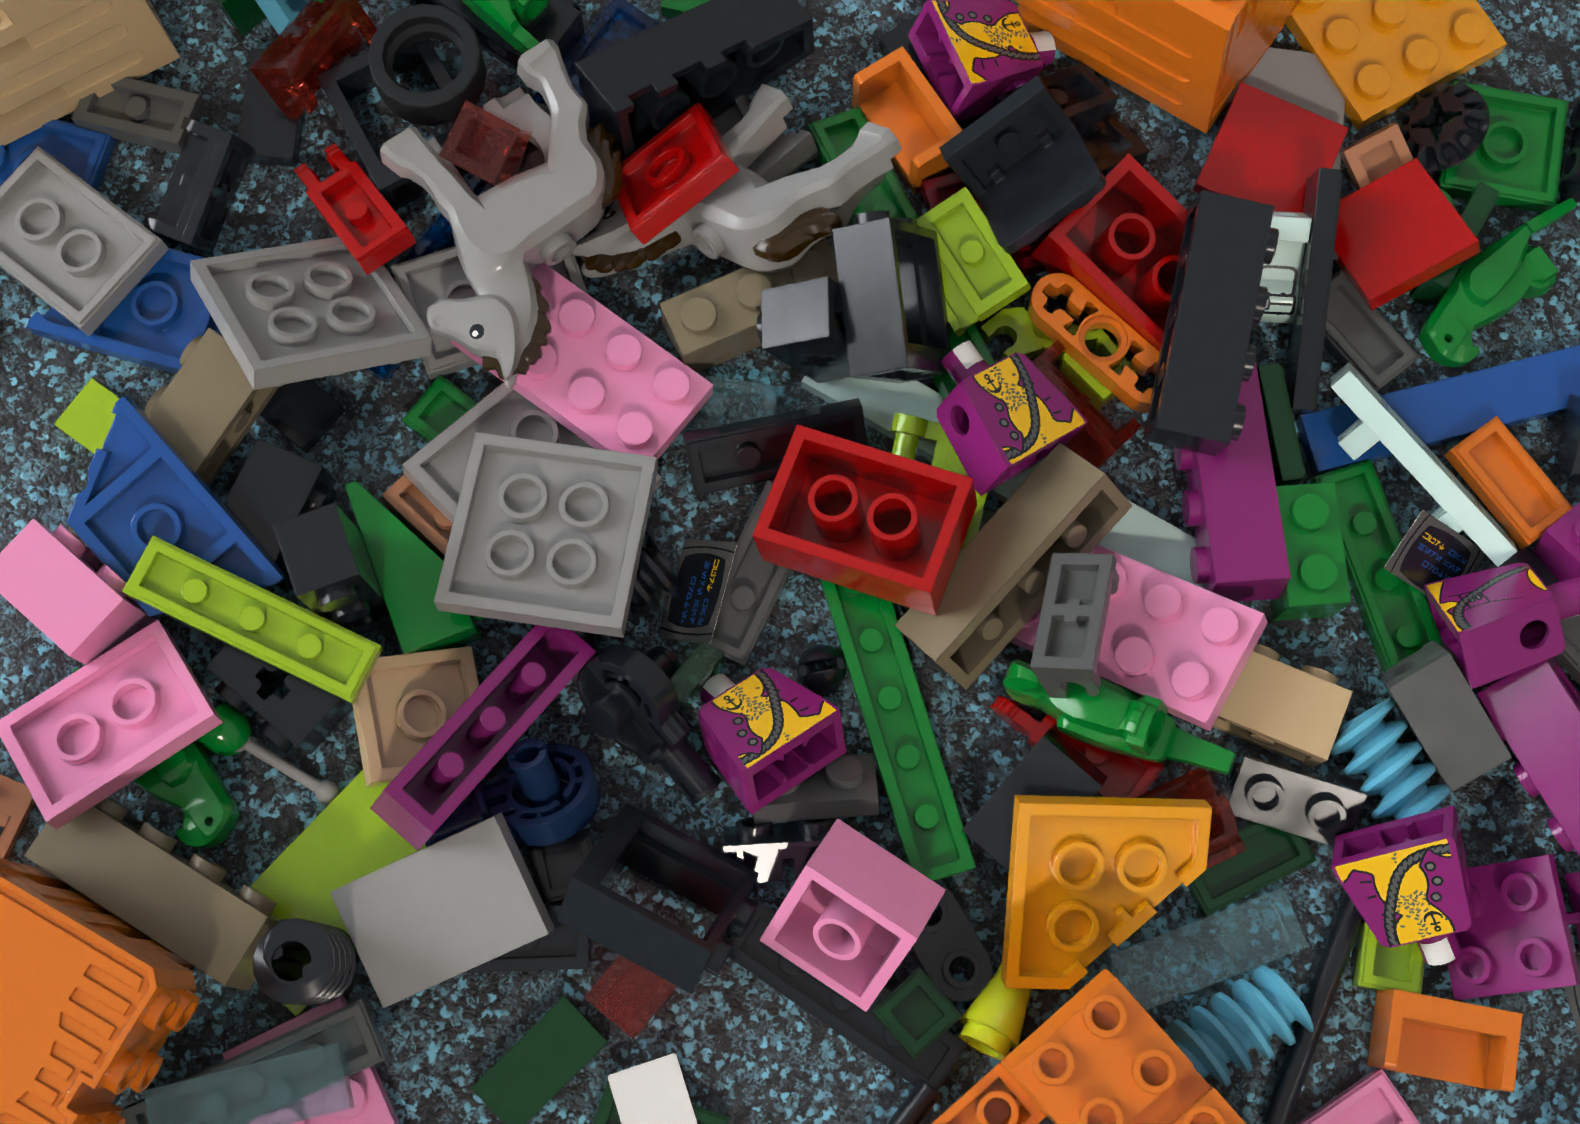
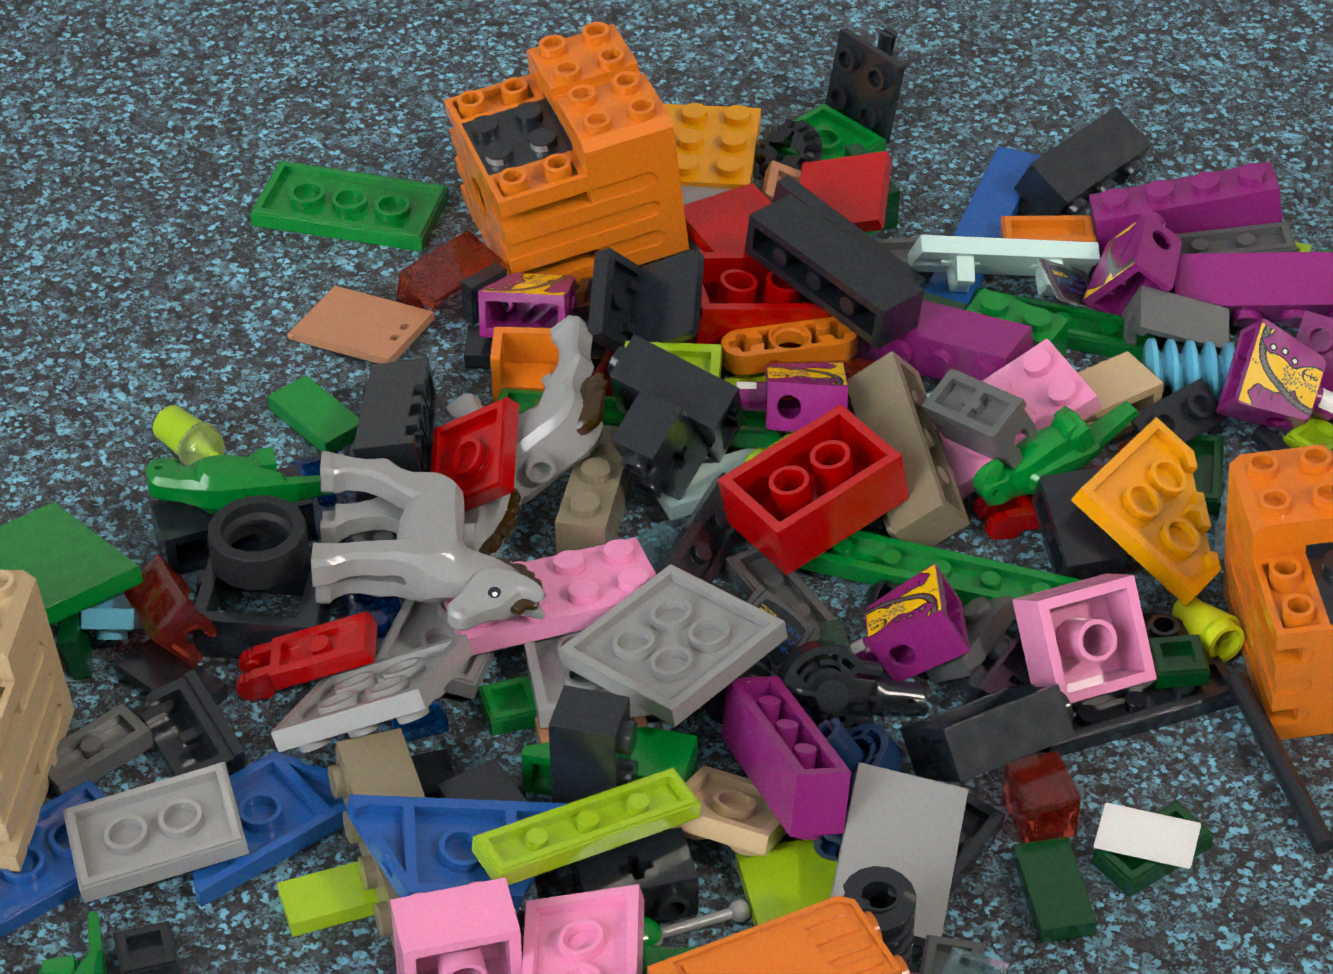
camera: 55 degrees left, 35 degrees down
(485, 143) = (360, 515): clear red brick -> none
(1489, 289) = (916, 180): green animal -> none

